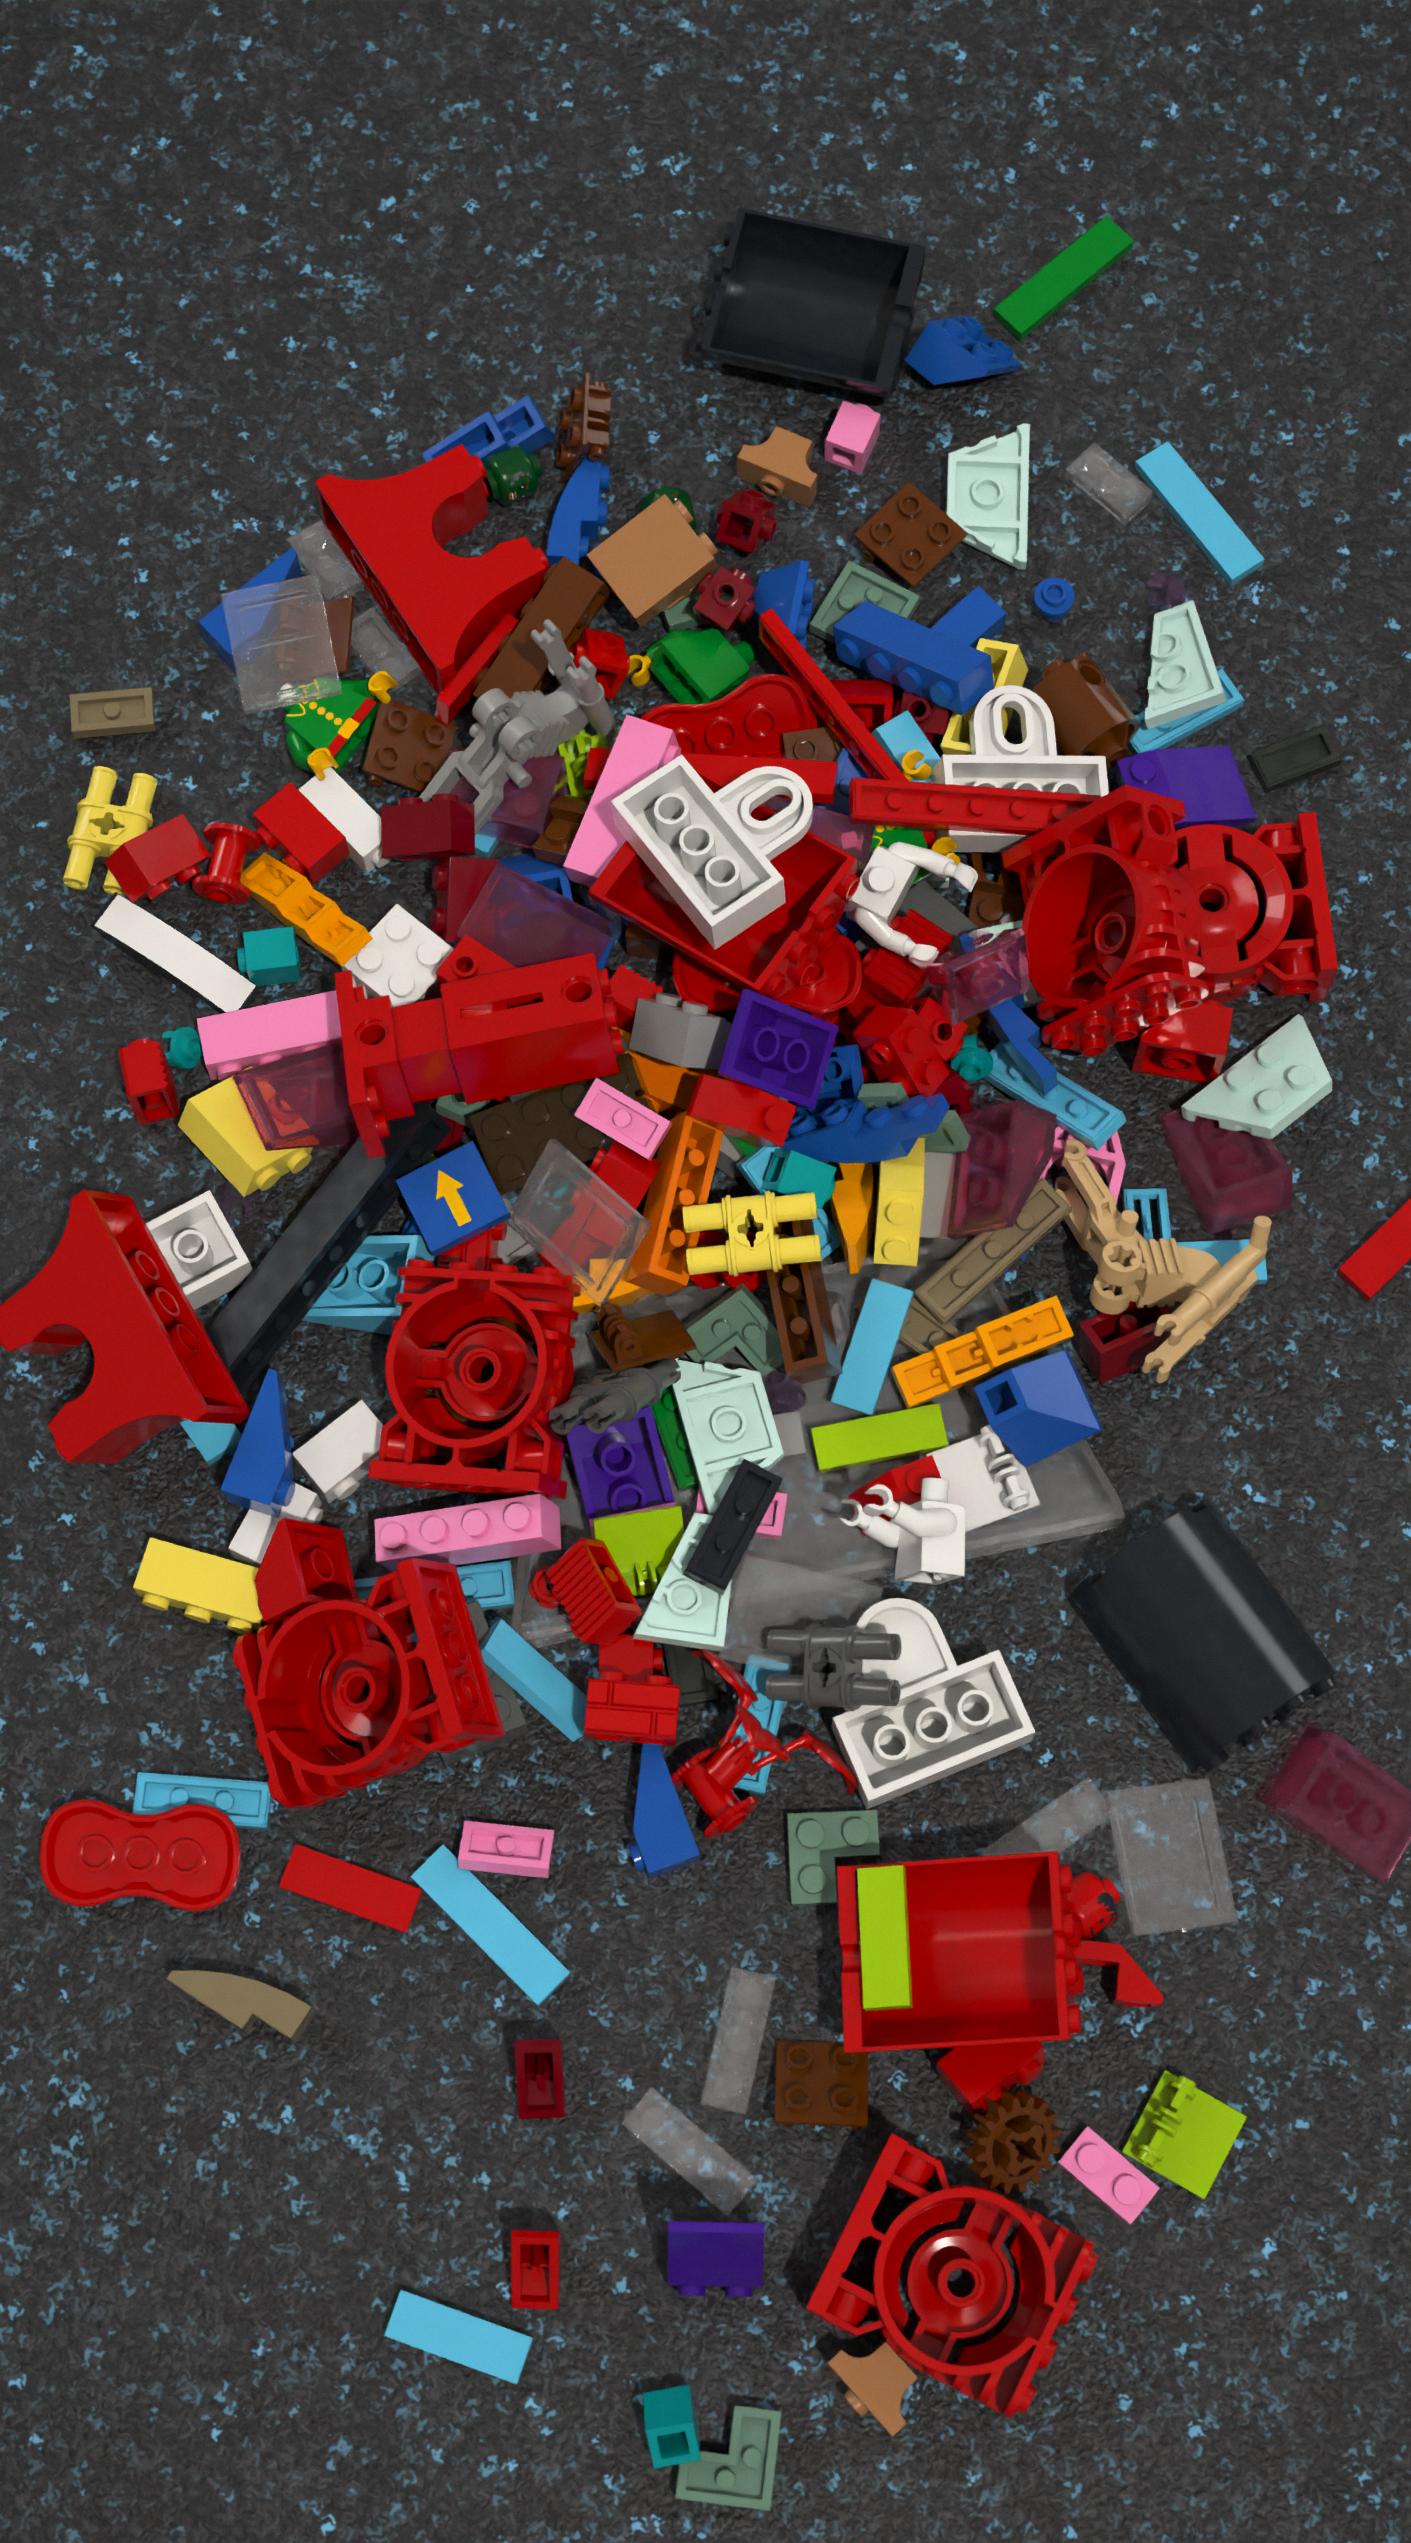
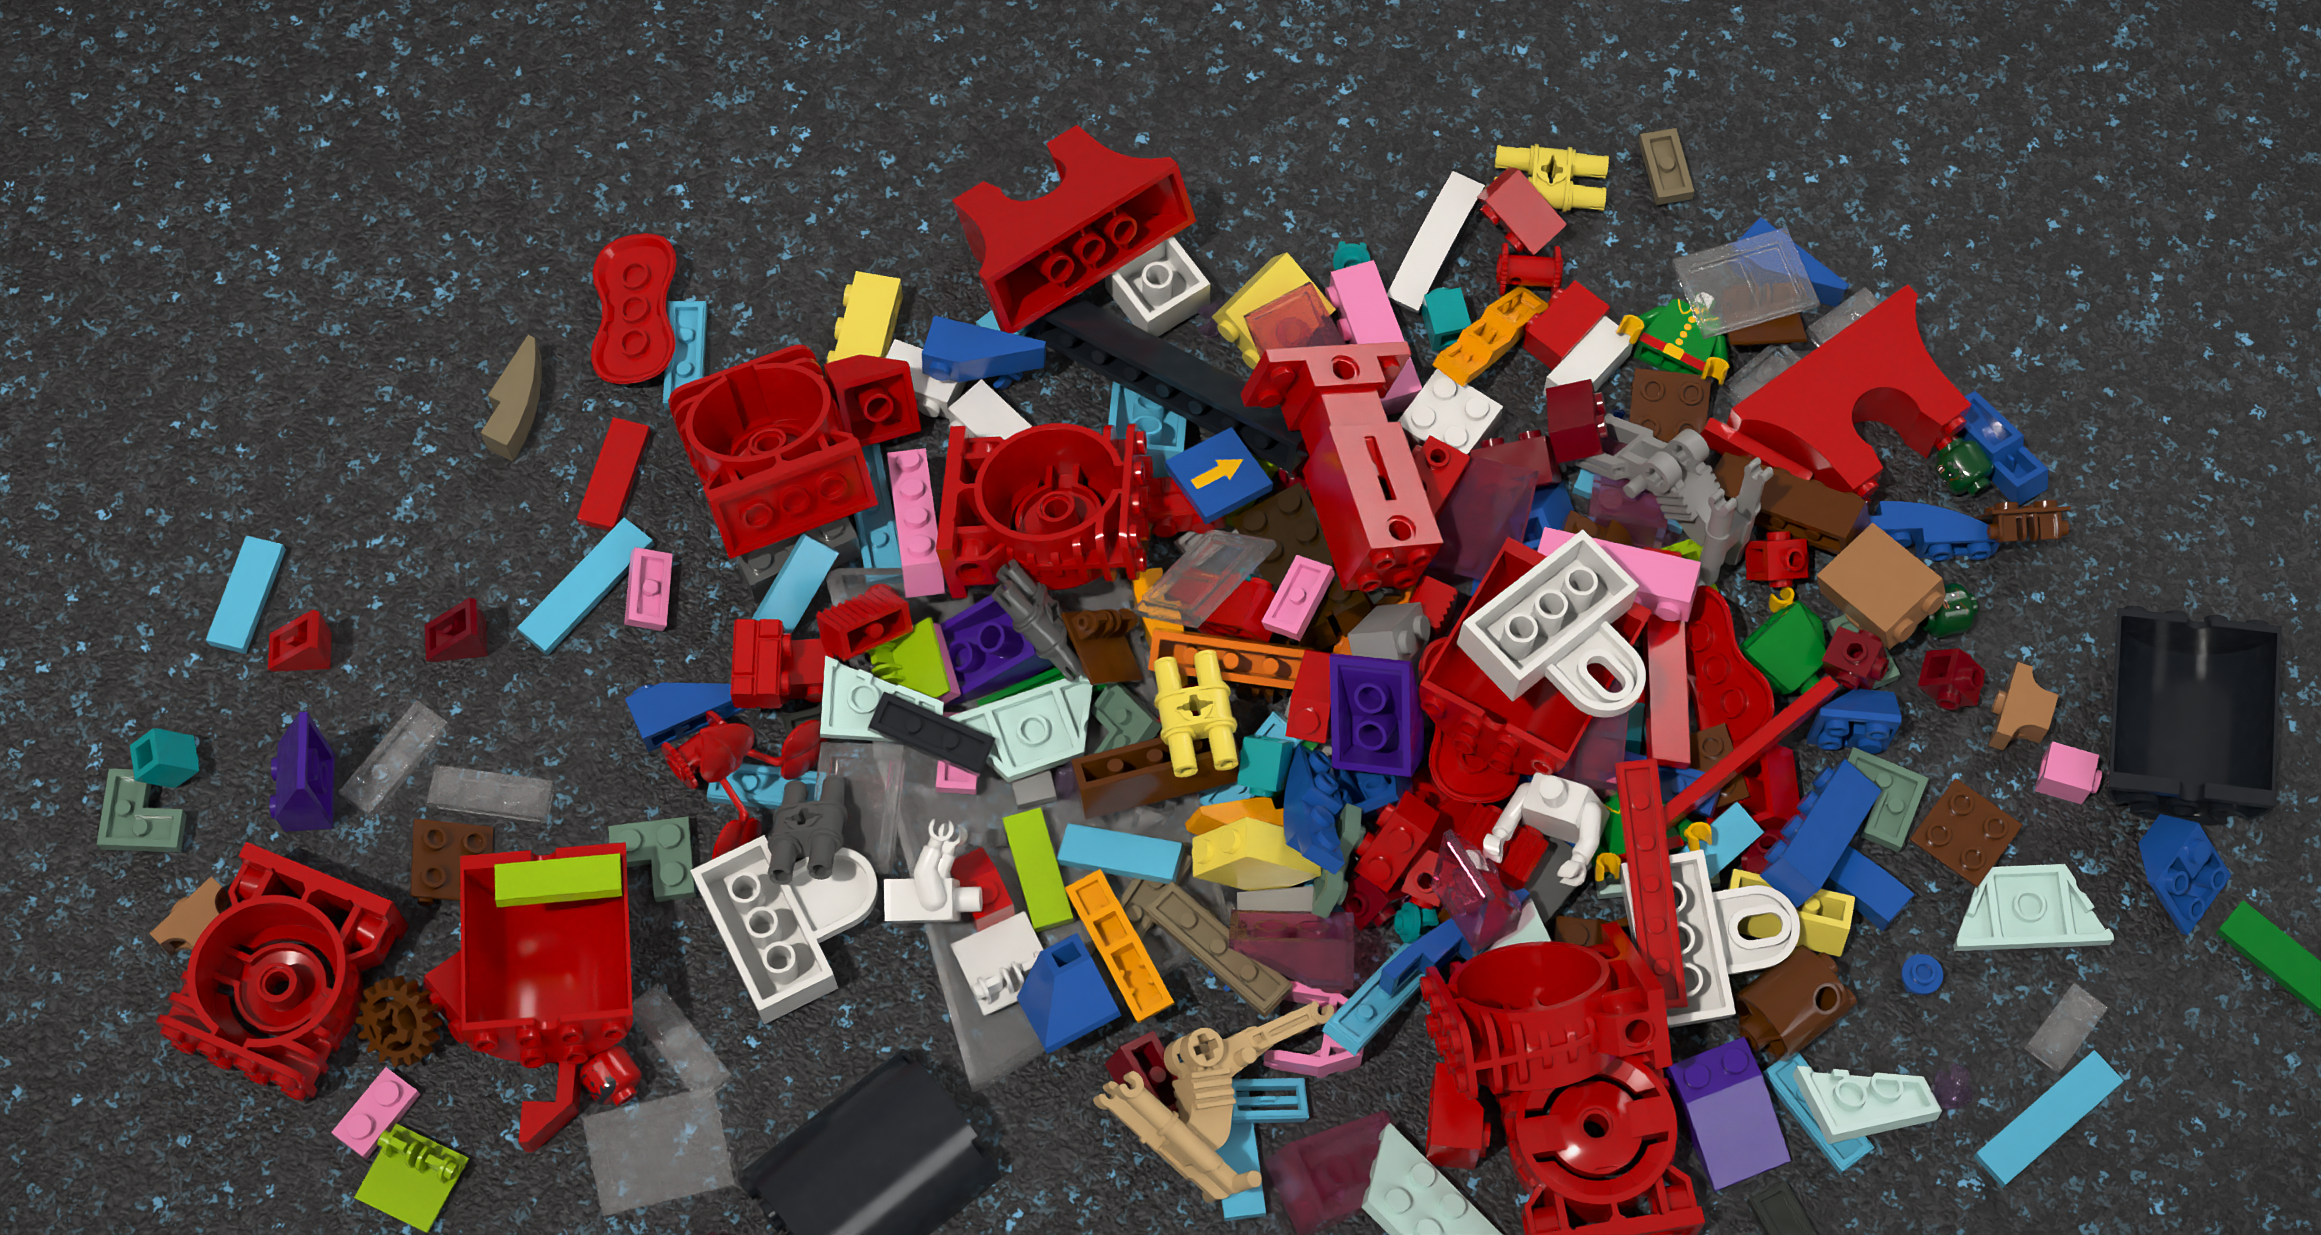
camera: 85 degrees right, 5 degrees down
(148, 1081) = (1311, 228): red brick -> none

